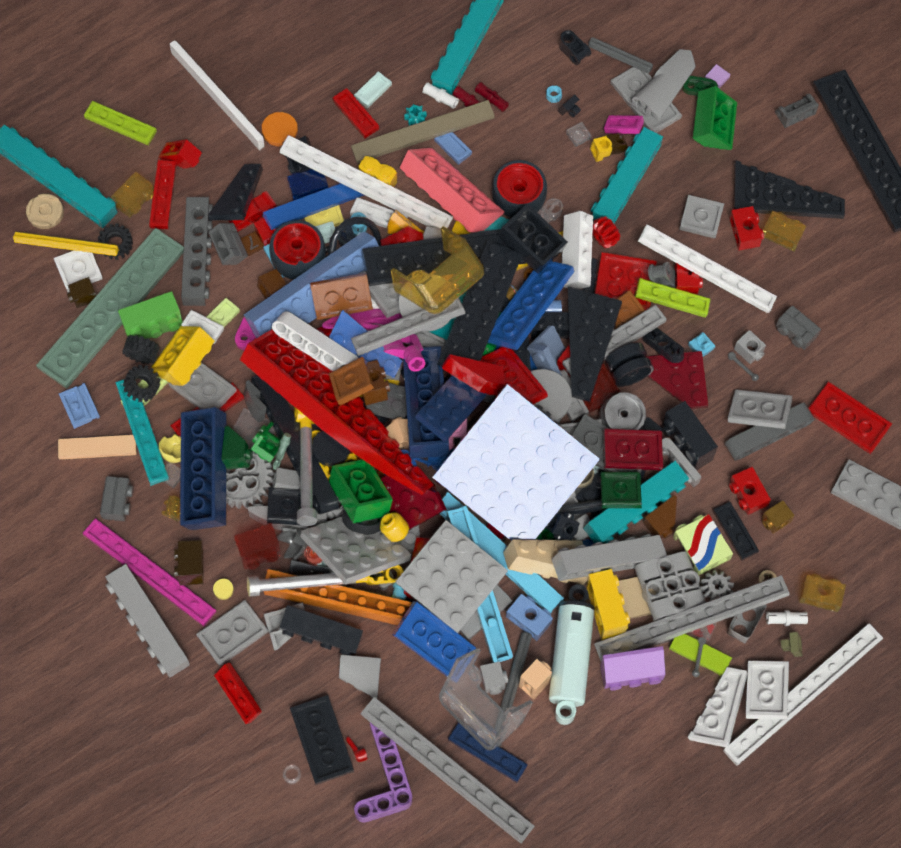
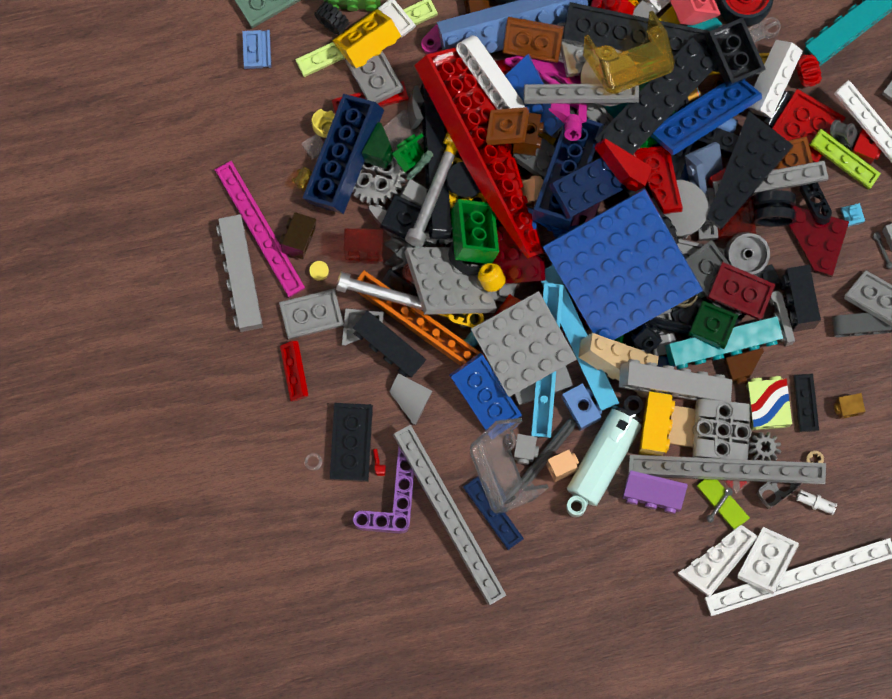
camera: 25 degrees right, 10 degrees up
(97, 447) = (258, 94): light nougat tile -> none
(116, 499) = (256, 150): dark grey brick -> none
(138, 392) = (312, 58): black tyre -> none
(143, 437) = (303, 95): teal tile -> none
(749, 480) = (837, 360): red brick -> none
(793, 645) = (811, 529): olive tile -> none
(811, 596) = (848, 491): clear yellow brick -> none

